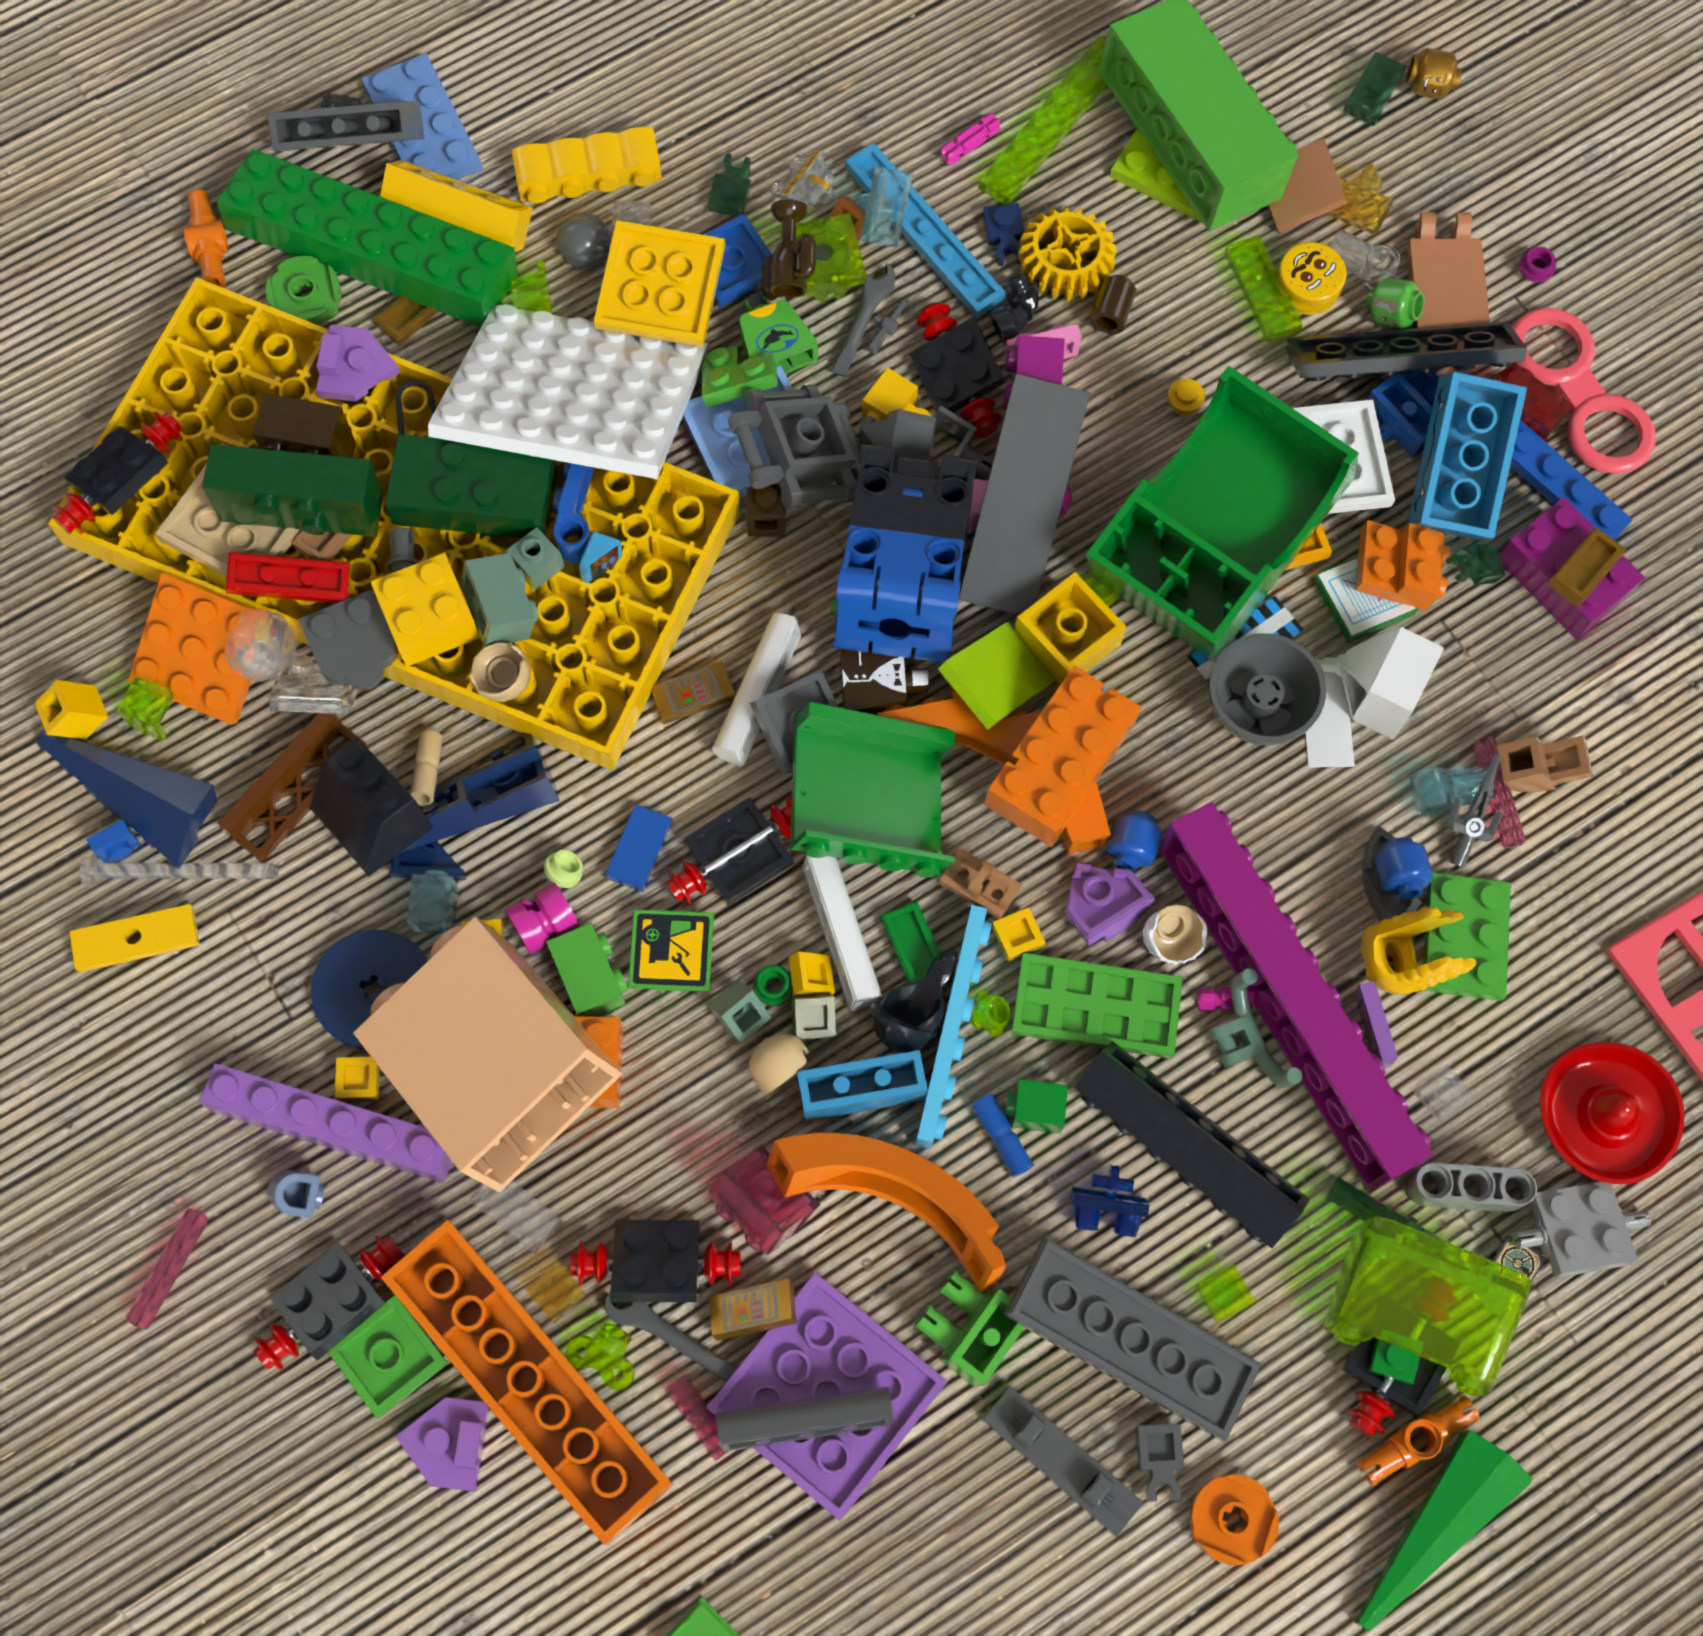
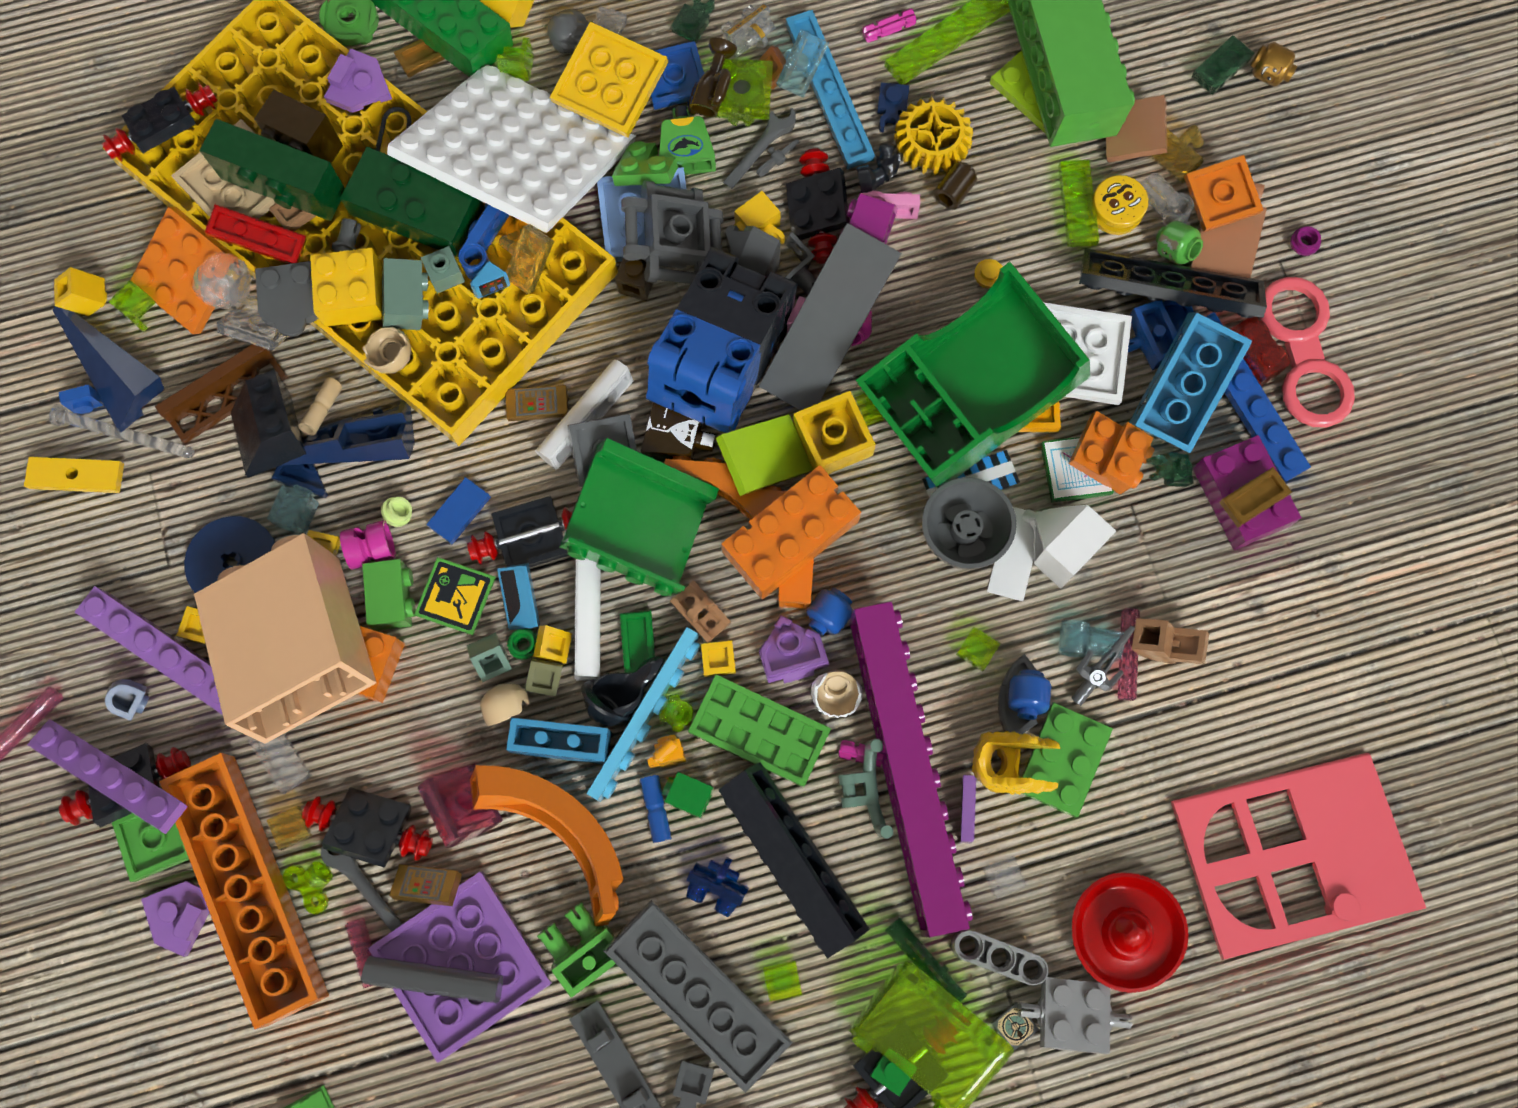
camera: 20 degrees right, 5 degrees up
(309, 1292) = (108, 776): none -> medium lavender plate
(638, 514) = (529, 254): none -> clear yellow plate
(751, 928) = (518, 596): none -> dark azure slope
(998, 1060) = (667, 752): none -> light orange piece
(1323, 835) = (978, 649): none -> clear neon green plate
(1429, 233) = (1223, 193): none -> orange plate

